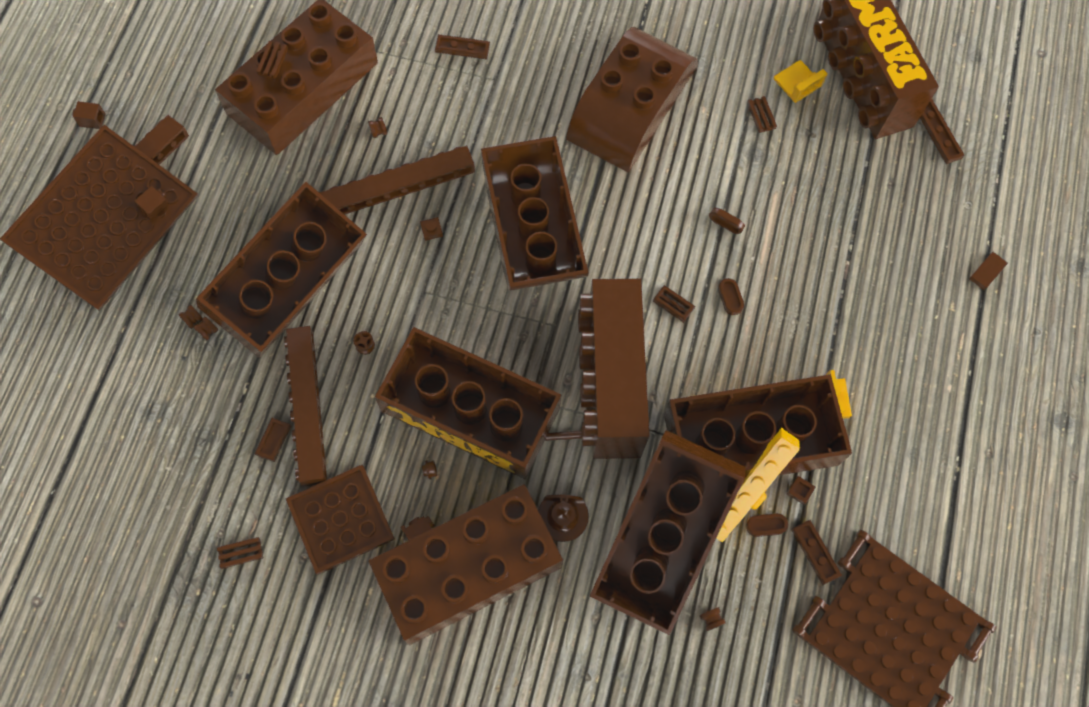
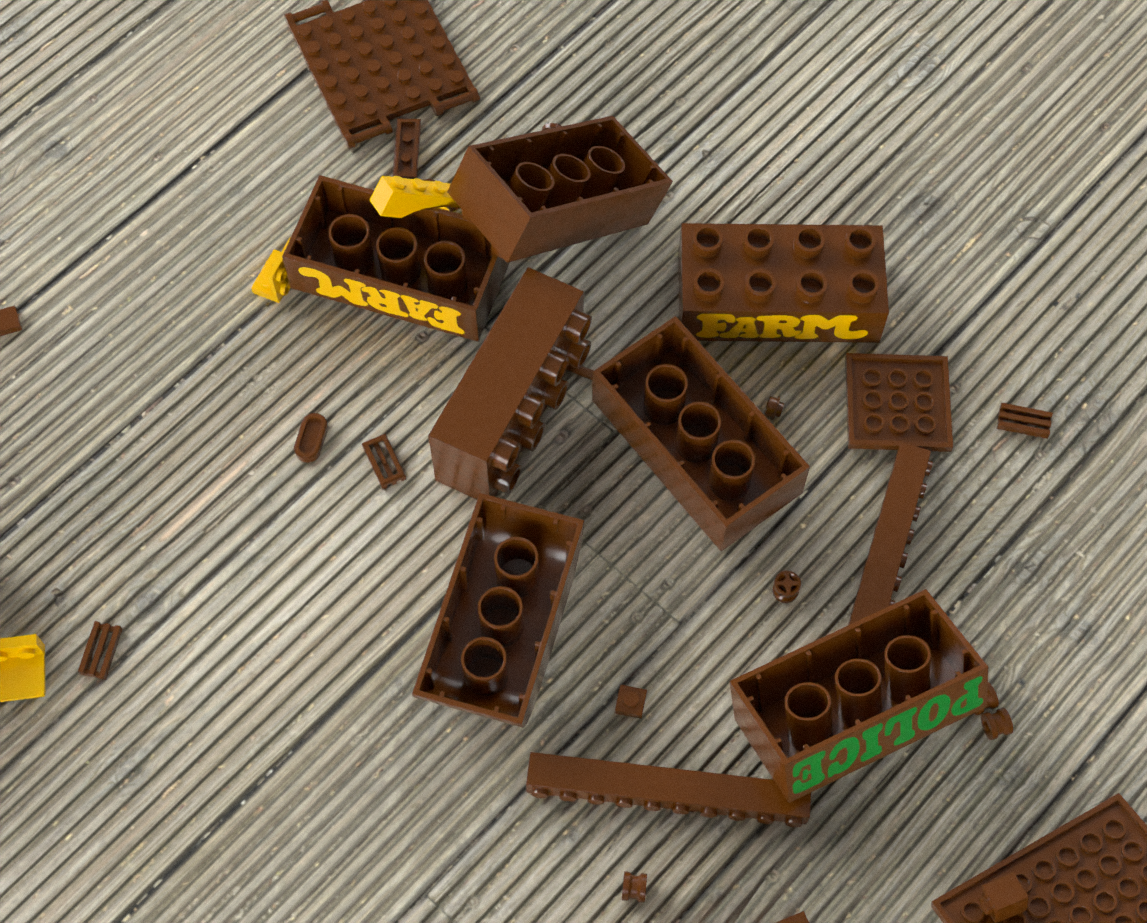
camera: 150 degrees left, 5 degrees down
(273, 439) = (943, 526): reddish brown tile -> none
(417, 527) = (816, 349): reddish brown brick -> none
(564, 516) = (650, 298): reddish brown hat -> none
(630, 98) = (250, 751): reddish brown brick -> none
(726, 220) = (252, 524): reddish brown tile -> none

